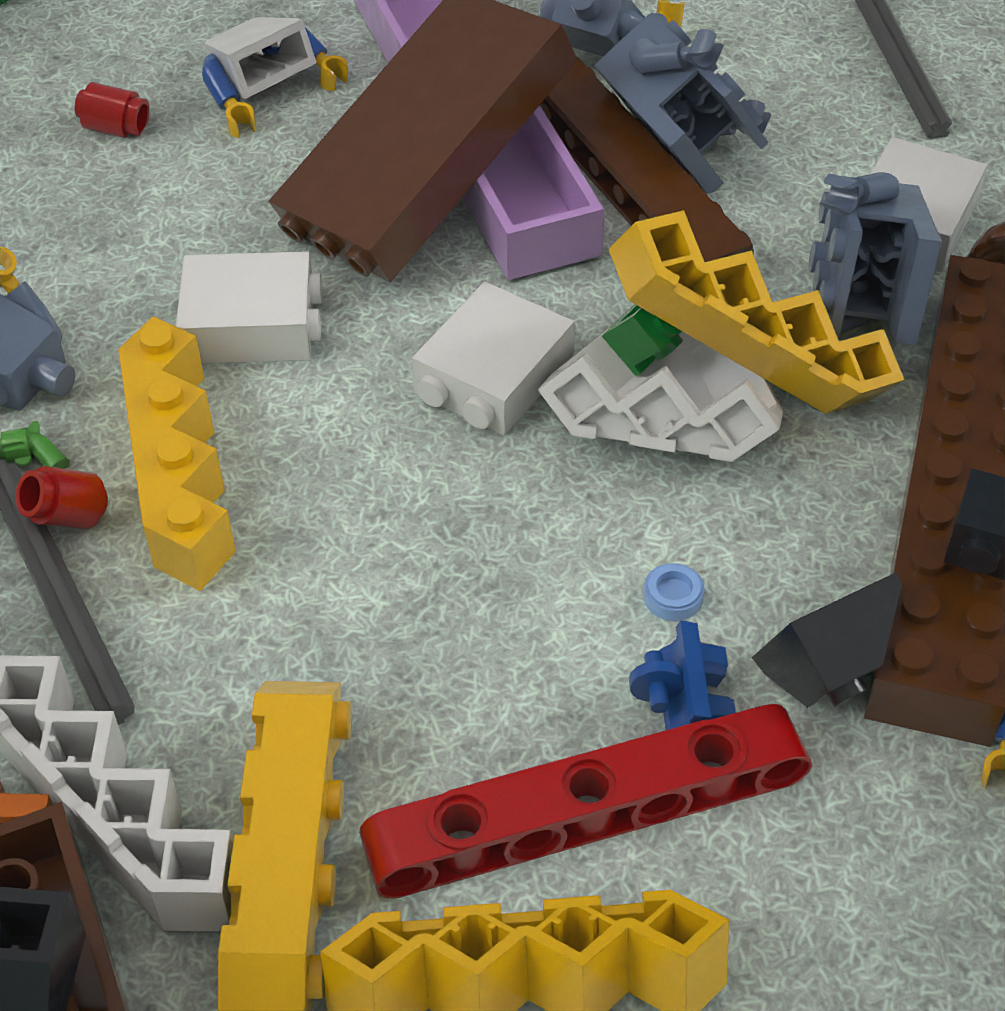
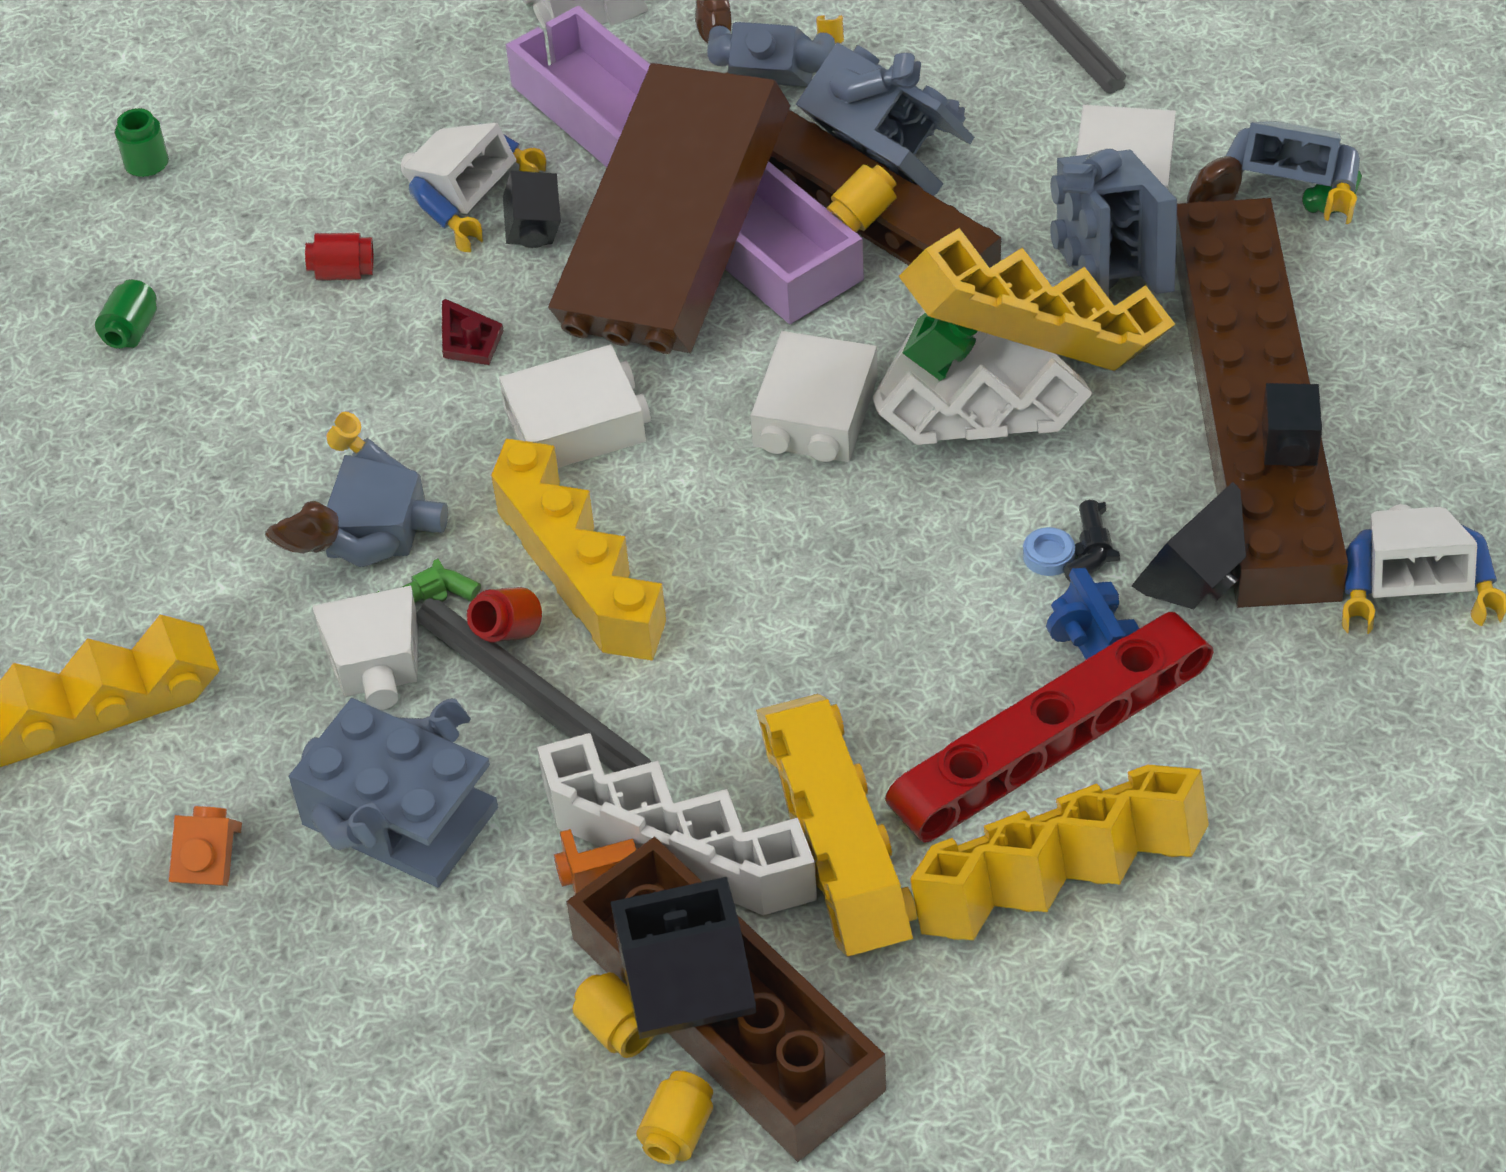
camera: 15 degrees left, 0 degrees up
(191, 211) = (468, 334): none -> dark red piece
(304, 107) = (531, 208): none -> black brick
(621, 170) = (863, 197): none -> yellow brick
(728, 596) = (1095, 541): none -> black piece

